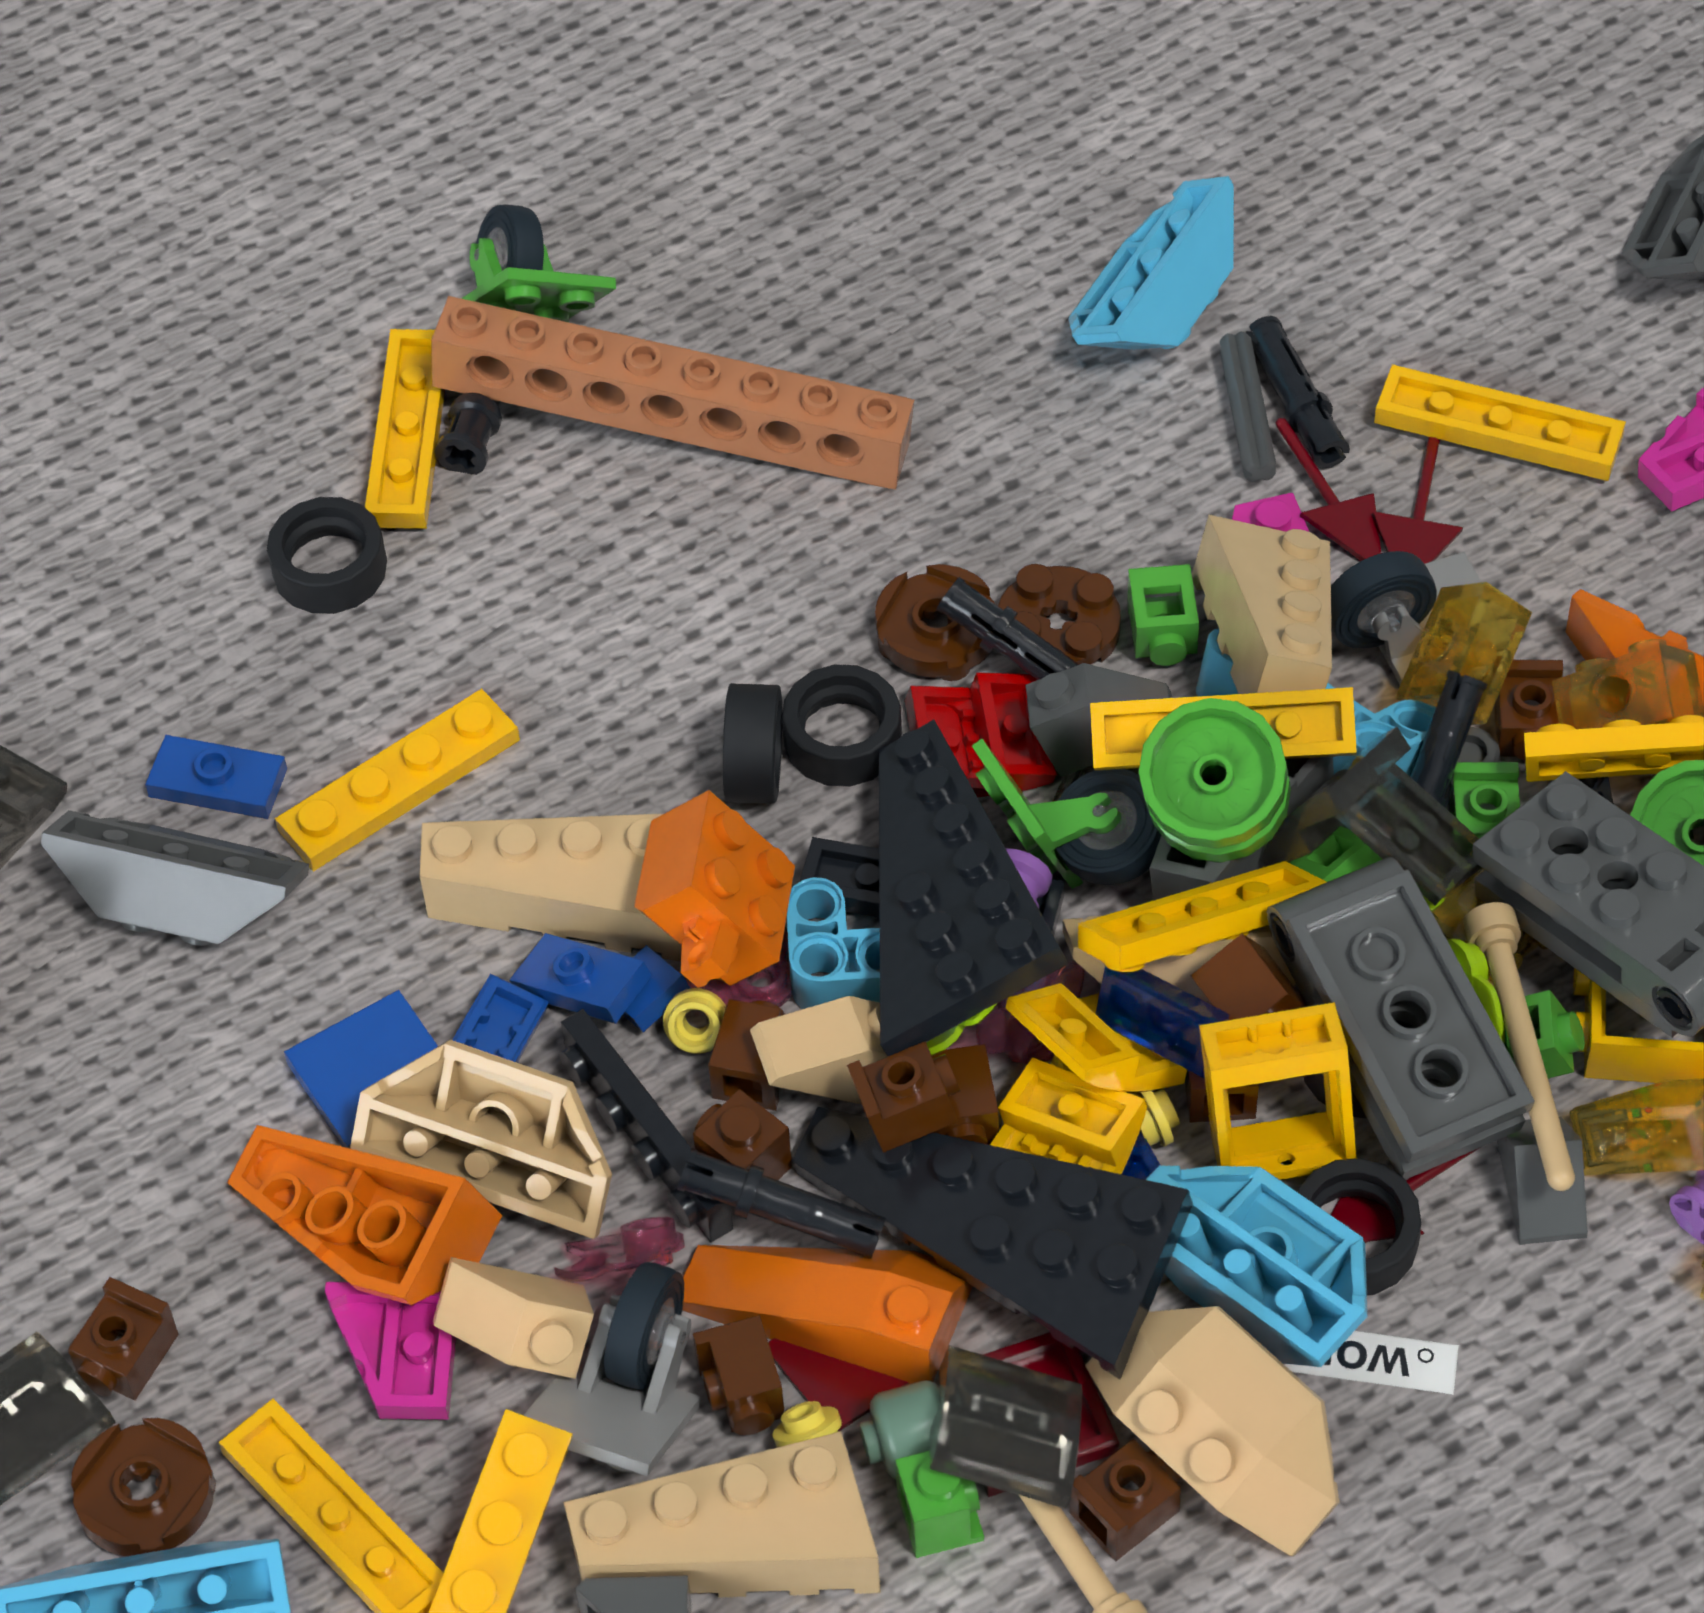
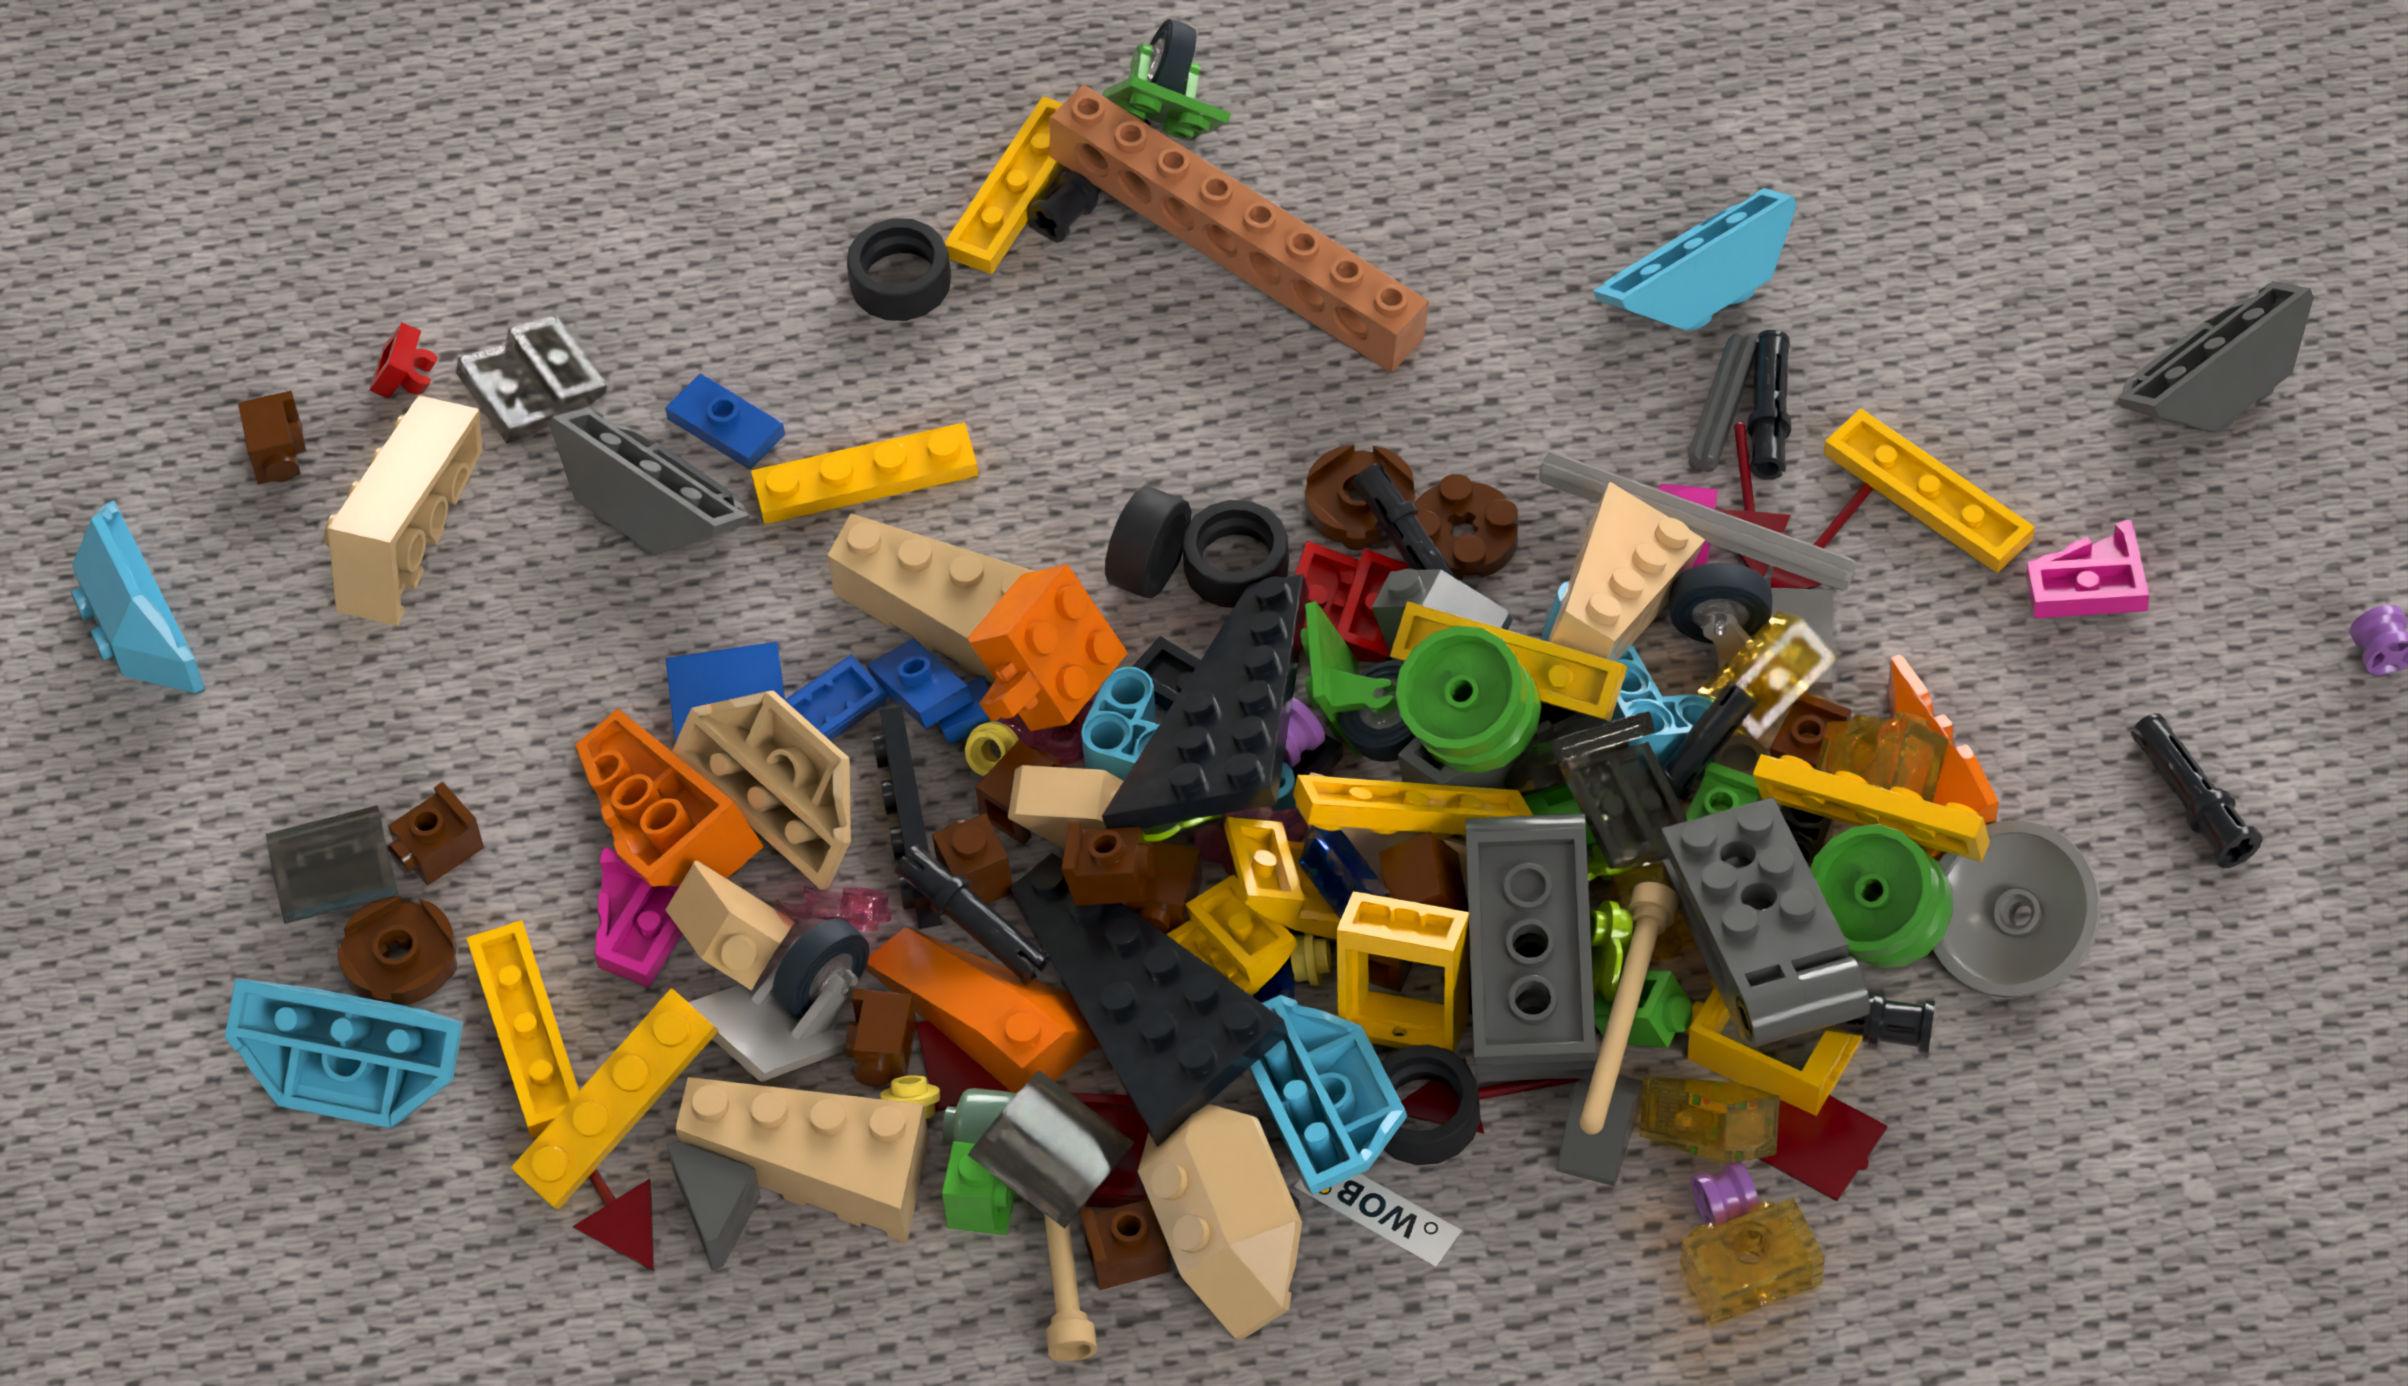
camera: 25 degrees right, 0 degrees up
(1165, 625) = (1543, 562): bright green brick -> none
(1339, 527) = (1712, 525): none -> light grey axle

